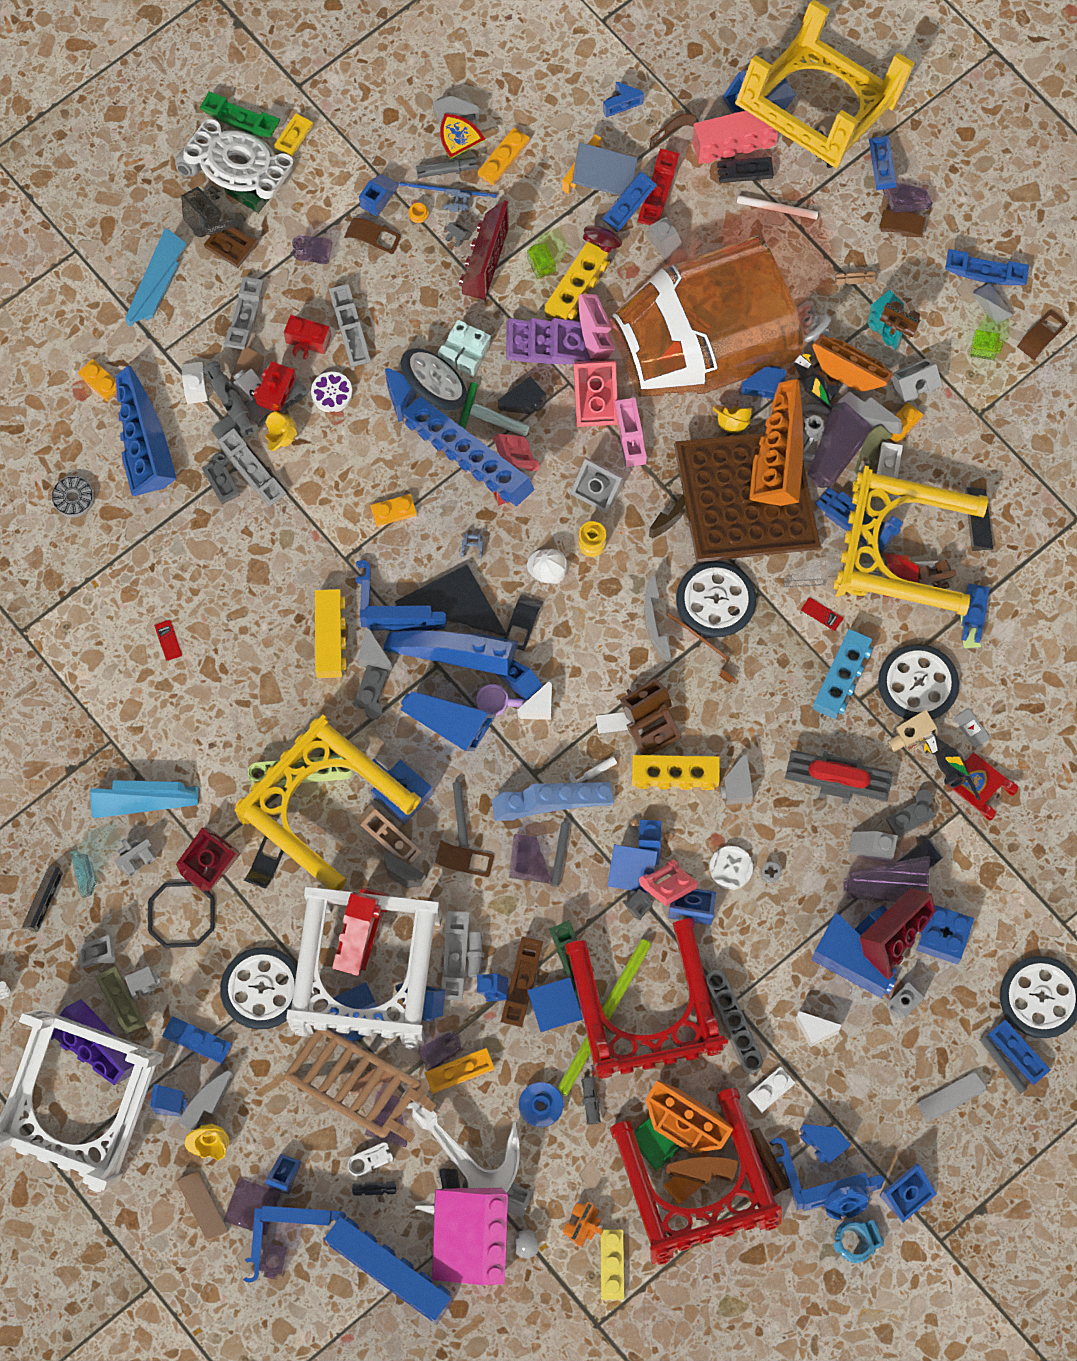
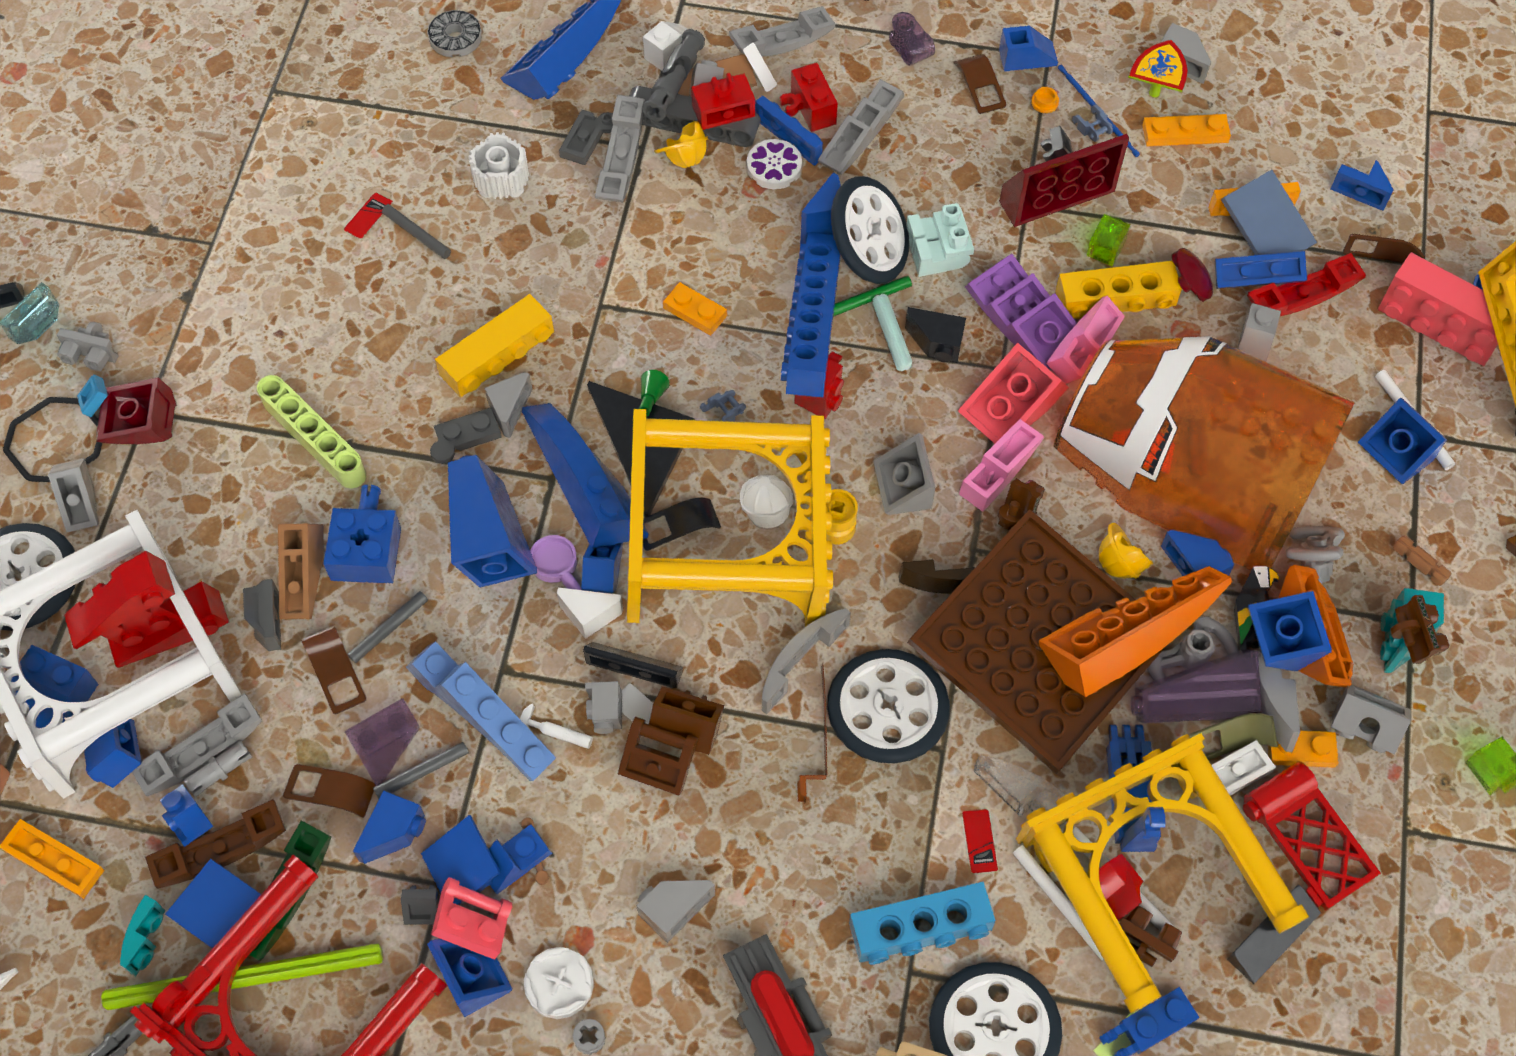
camera: 50 degrees right, 10 degrees down
(141, 796) = (163, 308): dark azure wedge -> none
(174, 873) = (92, 395): none -> dark azure tile
(205, 621) = (416, 231): none -> dark grey bar
(208, 553) = (499, 167): none -> white brick
(235, 923) = (74, 494): none -> light grey slope
(259, 346) = (760, 67): none -> white sticker
(263, 868) = (172, 477): black piece -> none
(319, 365) = (789, 129): none -> blue plate
(325, 737) = (215, 435): yellow arch -> none
(394, 617) = (567, 391): blue hinge -> none
(430, 571) = (653, 386): none -> green cone
(436, 1052) = (61, 817): clear purple piece -> none
(447, 167) = (1128, 95): dark grey pin -> none
(514, 447) = (870, 362): coral plate -> none
(535, 905) = (334, 790): none -> reddish brown piece
(542, 1093) = (53, 978): blue dish -> none
(546, 1056) = (136, 947): none -> teal slope
(548, 523) = (799, 582): none -> yellow arch
(582, 889) = (389, 828): none -> blue slope
(588, 705) = (633, 664): none -> black slope
(603, 737) = (605, 706): none -> light grey brick
(665, 442) = (1018, 501): none -> reddish brown hips
(685, 764) = (602, 777): yellow brick -> none
(745, 169) = (1420, 354): black hinge -> none
(787, 226) = (1403, 441): none -> blue slope
(846, 376) = (1290, 631): none -> blue slope
(878, 601) = (1054, 894): none -> white piece
(919, 459) = (1277, 802): none -> red piece

